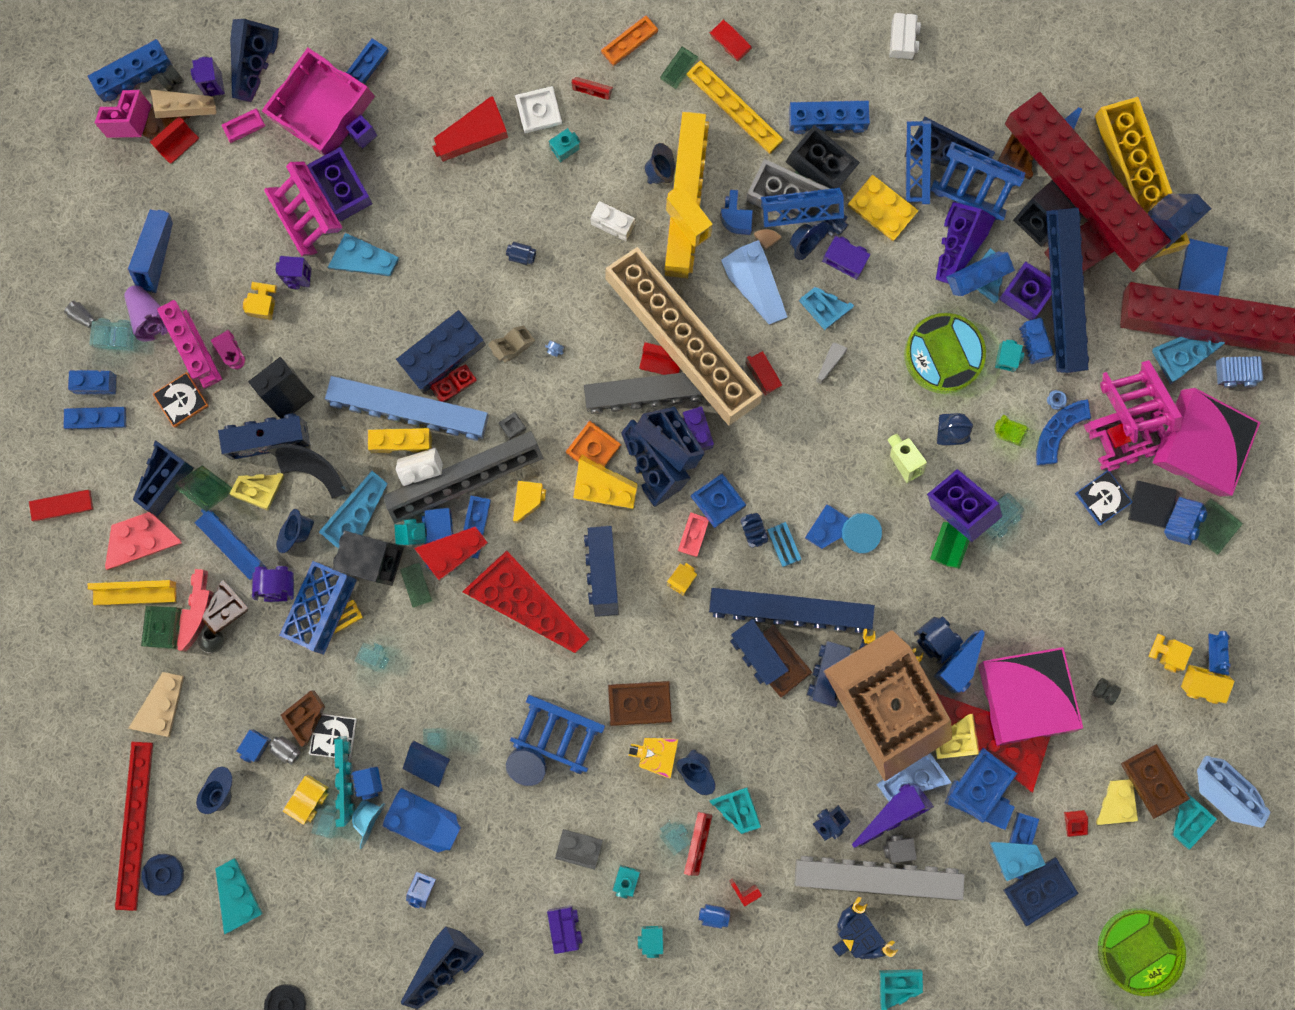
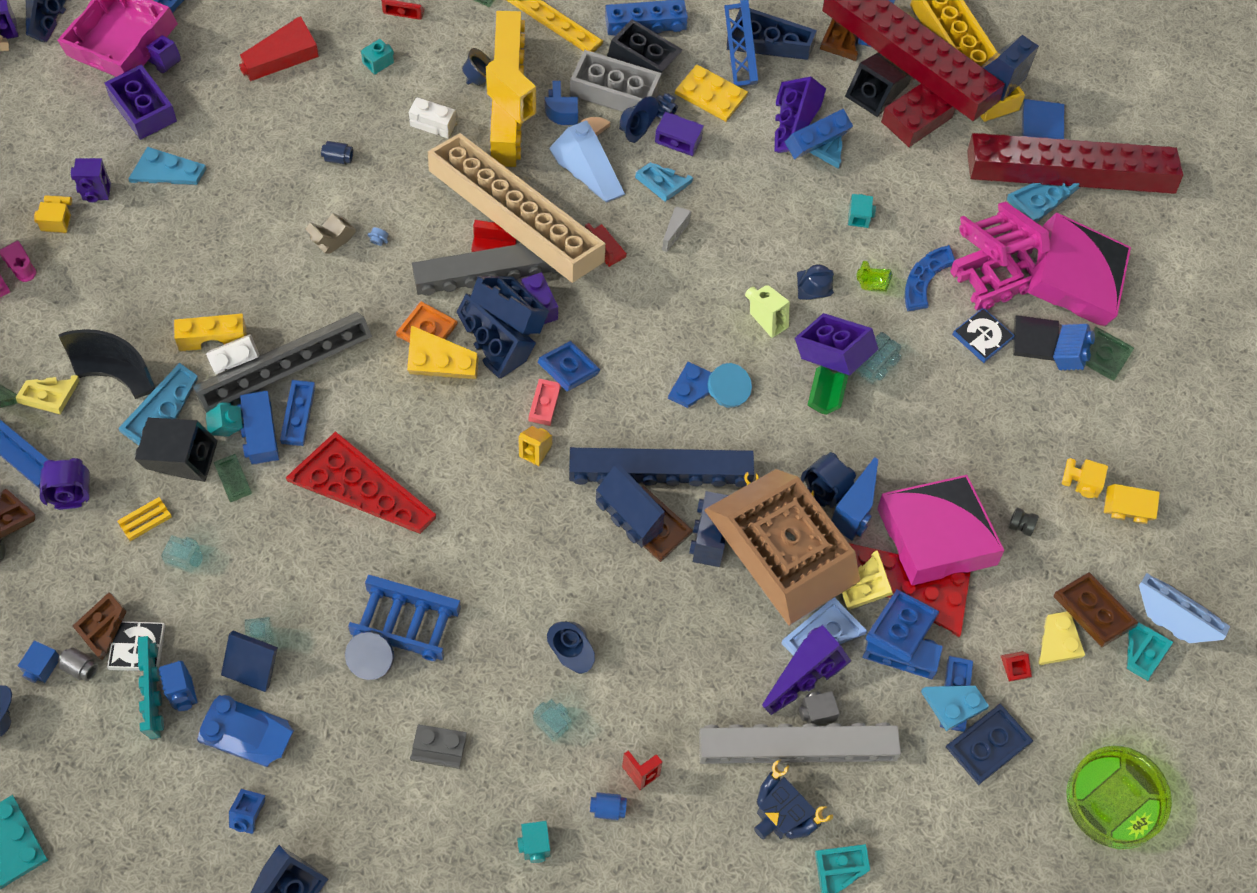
camera: 10 degrees left, 20 degrees down
(243, 125) = (38, 61): dark pink tile -> none
(255, 437) = (37, 339): dark blue brick -> none
(281, 388) = (75, 287): black slope -> none
(294, 530) = (92, 429): dark blue piece -> none
(306, 799) = (103, 717): yellow brick -> none
(316, 201) = (117, 116): dark pink fence -> none
(326, 822) = (128, 741): clear light blue brick -> none
(330, 612) = (131, 510): blue fence -> none
(364, 819) = (177, 731): medium azure piece -> none
(406, 407) = (216, 299): medium blue brick -> none
(441, 351) = (253, 245): dark blue brick -> none
(451, 551) = (271, 432): red wing -> none
(453, 384) = (271, 276): red slope -> none
(512, 425) = (335, 311): dark grey tile -> none
(527, 499) = (357, 380): yellow slope -> none
(538, 109) = (349, 31): white tile -> none
(563, 929) = (426, 839): dark purple brick -> none
(602, 570) = (445, 444): dark blue wedge -> none
(626, 881) = (498, 775): teal brick -> none
(639, 703) = (499, 580): reddish brown tile -> none
(656, 755) = (522, 630): yellow torso -> none
(698, 844) = (581, 725): red tile -> none
(738, 809) = (624, 683): teal wing -> none
(754, 530) = (611, 389): dark blue gear -> none
(777, 528) = (637, 390): dark azure tile -> none
(802, 200) = (625, 78): blue fence -> none
(831, 822) = (734, 685): dark blue brick -> none
(945, 353) = (793, 213): brick -> none
(977, 162) = (798, 37): blue fence -> none
(1027, 291) = (870, 150): dark purple brick -> none
(1036, 341) = (886, 194): blue brick -> none
(1060, 396) = (917, 243): medium blue plate -> none
(1067, 290) = (910, 140): dark blue brick -> none
(1118, 436) = (989, 269): red tile -> none
(1219, 653) = (1137, 470): blue hinge -> none
(1239, 371) = (1099, 208): medium blue brick -> none

